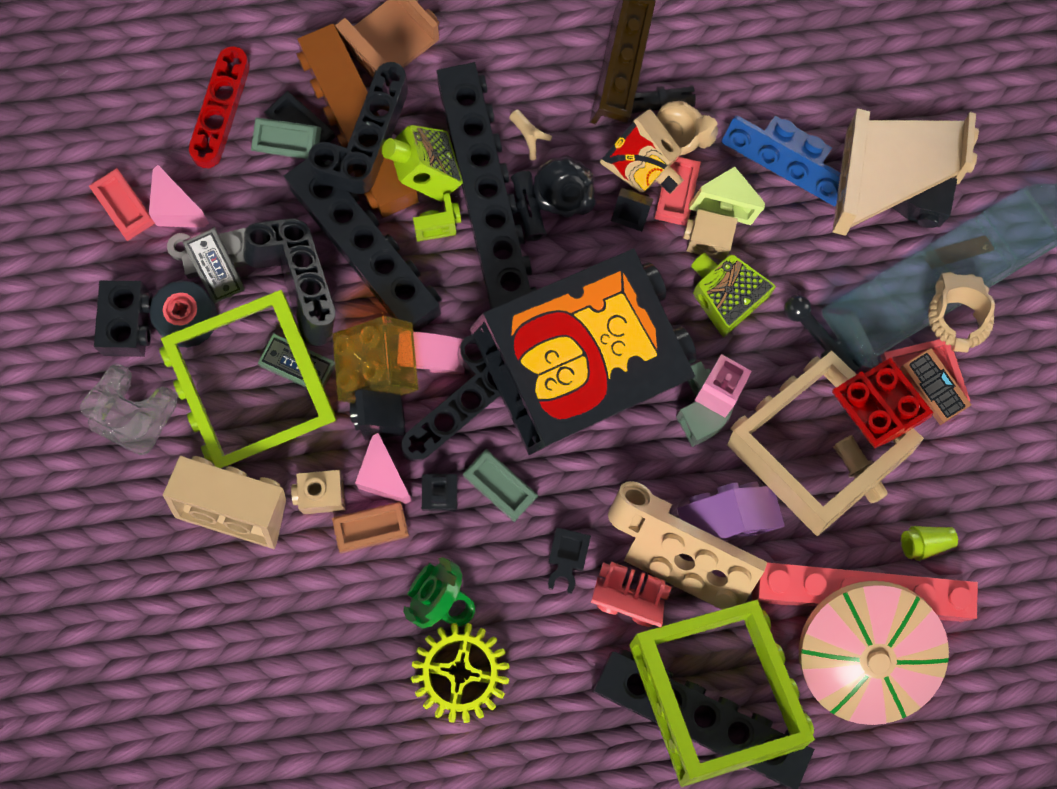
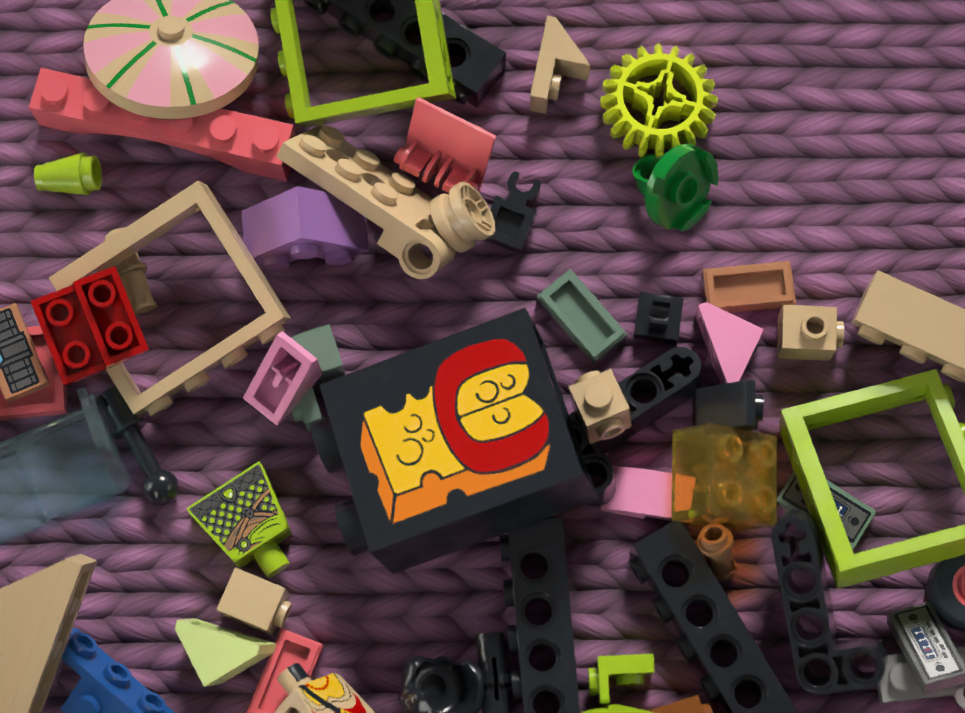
camera: 165 degrees left, 0 degrees up
(372, 309) = (716, 545): none -> medium nougat pin
(476, 393) = (600, 405): none -> tan brick
(553, 703) = (556, 59): none -> tan slope
(607, 539) = (462, 217): none -> tan wheel
(632, 209) = (352, 653): black tile -> none

